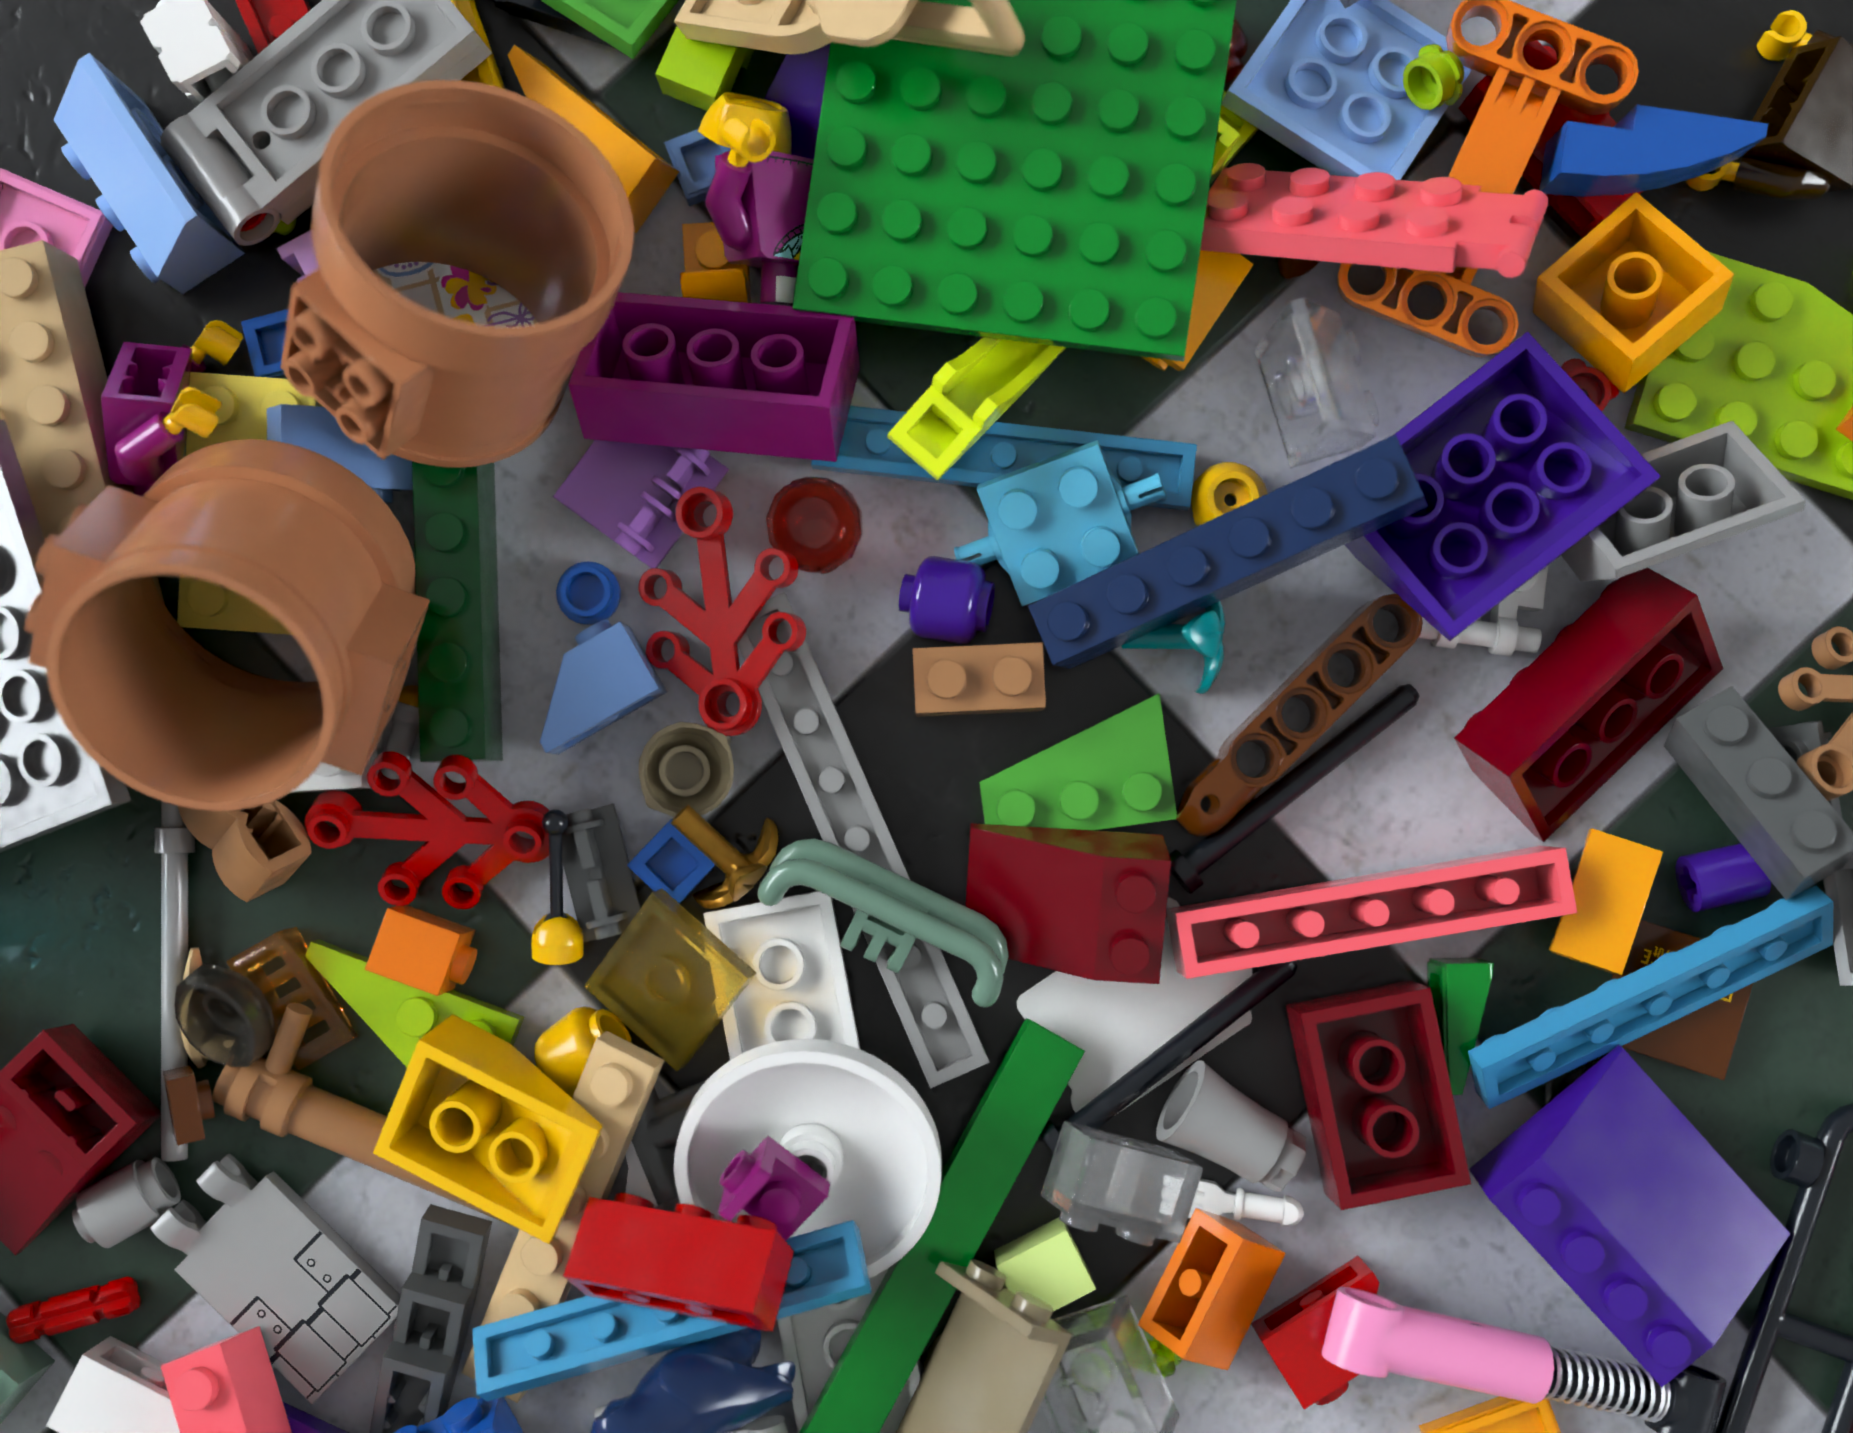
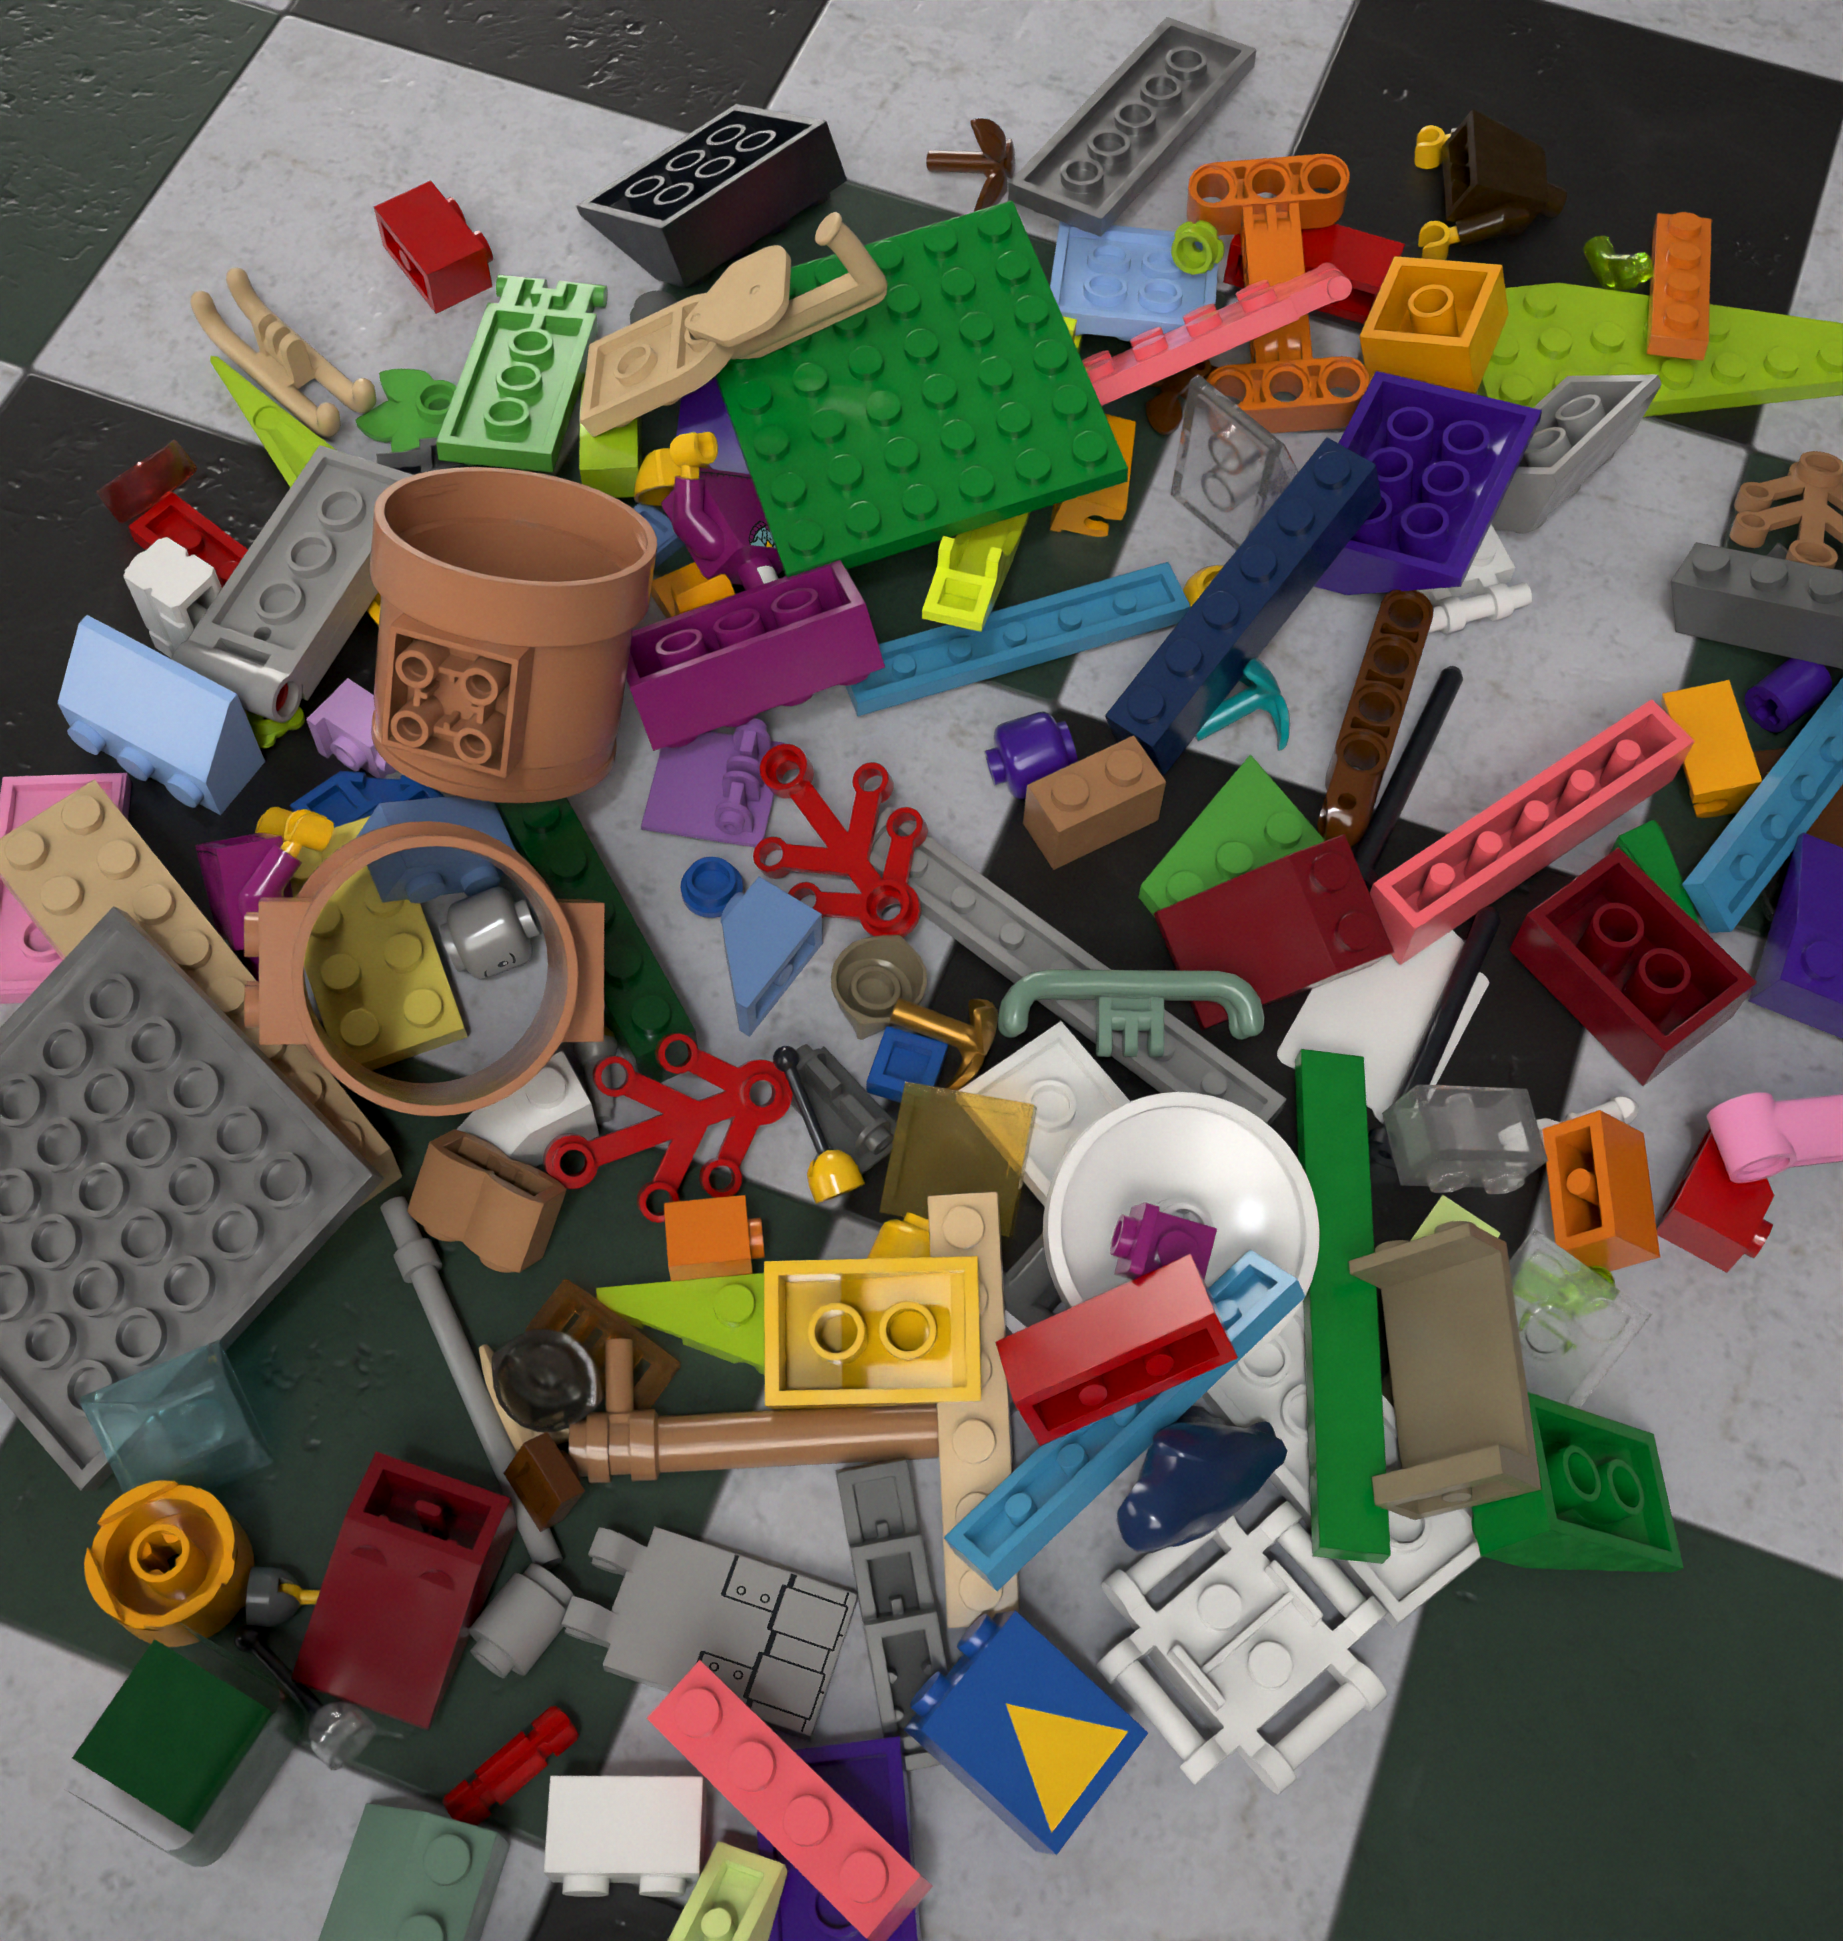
camera: 30 degrees left, 25 degrees down
(815, 523) = (891, 734): clear red hair -> none
(1059, 521) = (1088, 654): medium azure plate -> none
(1230, 1129) = (1530, 1056): light grey plant -> none
(1591, 699) = (1596, 611): dark red slope -> none
(1642, 151) = (1385, 224): blue slope -> none

